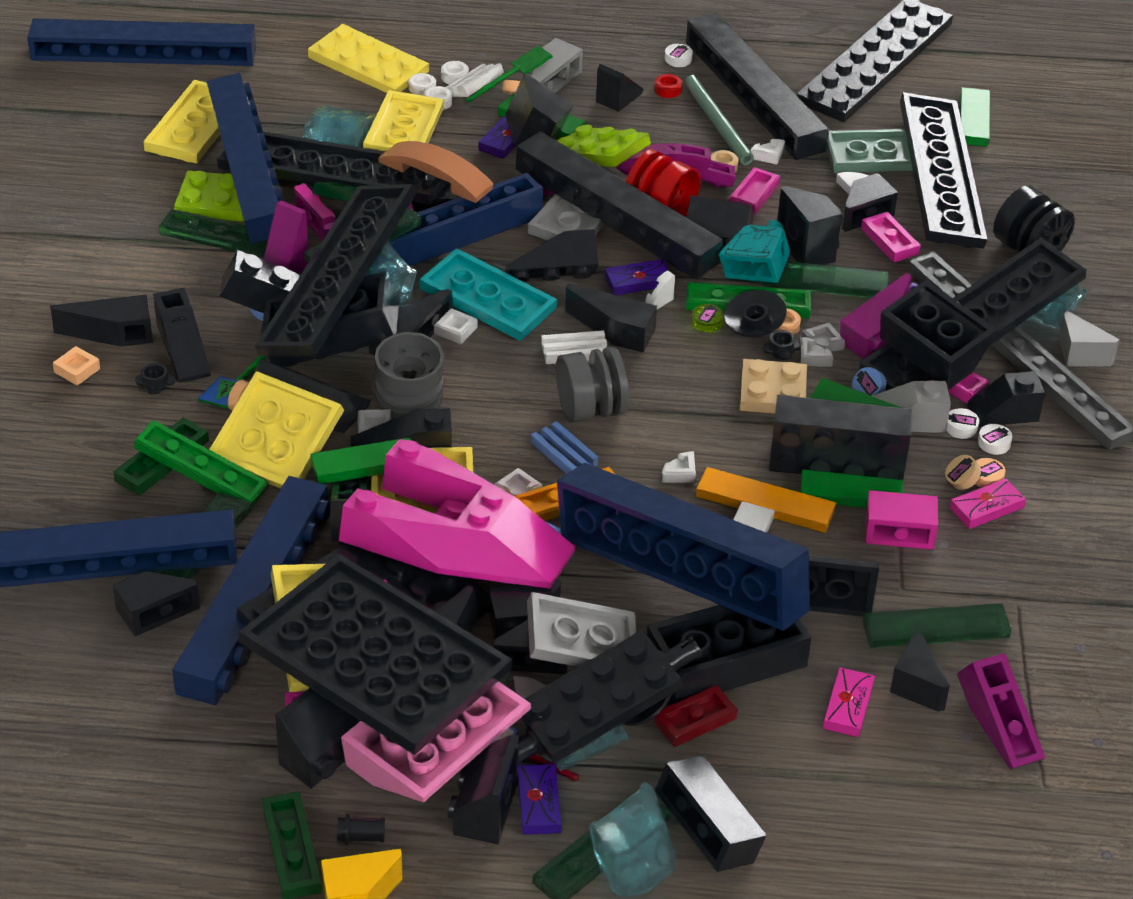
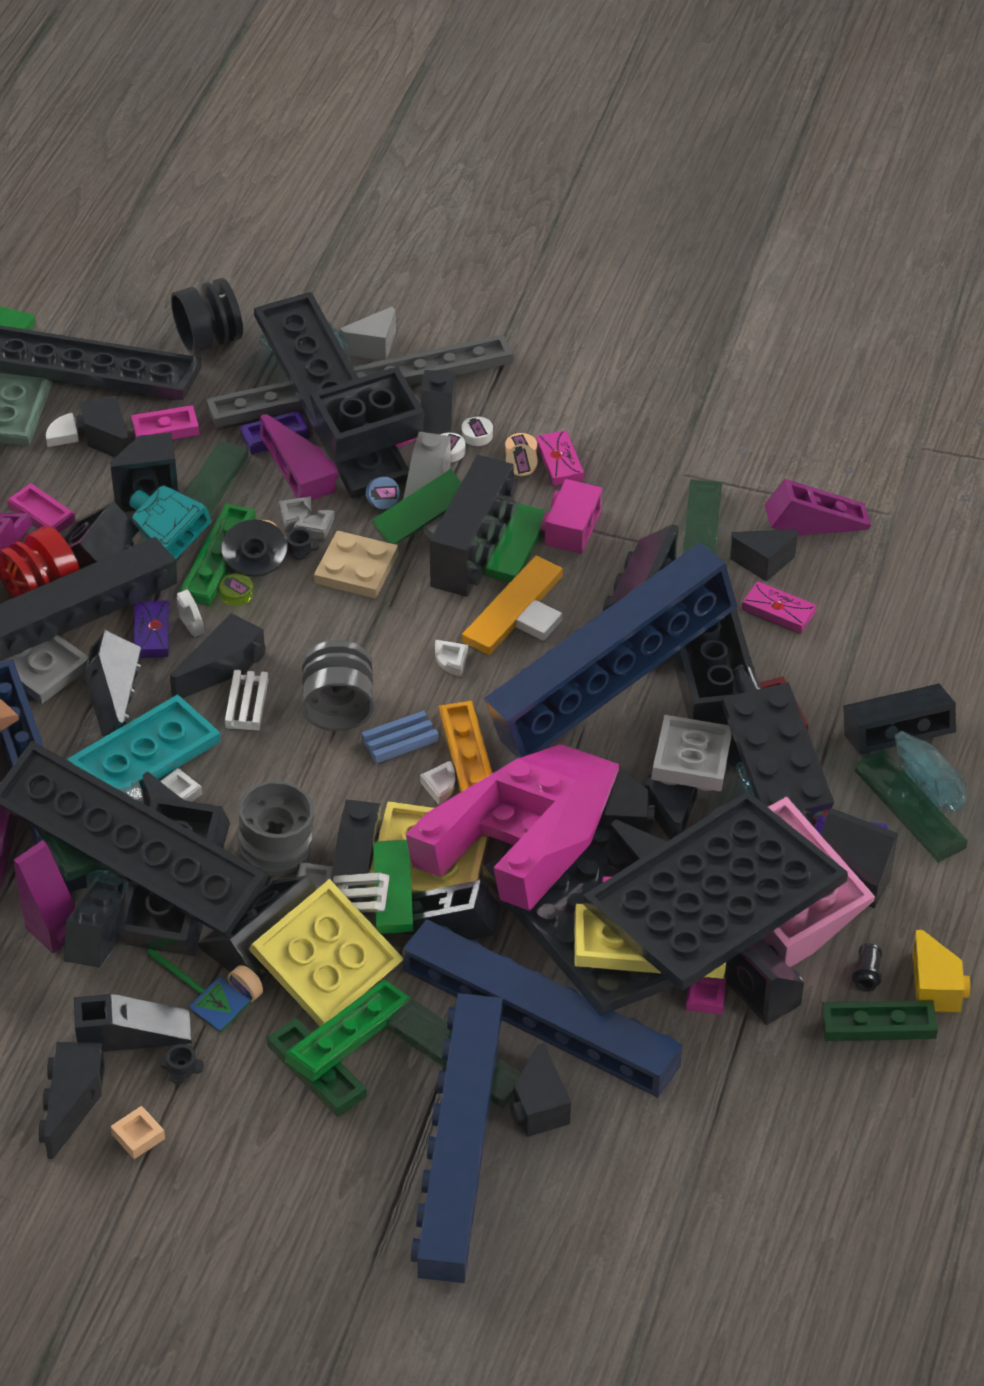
camera: 75 degrees left, 5 degrees up
(346, 437) = (363, 879): none -> white tile

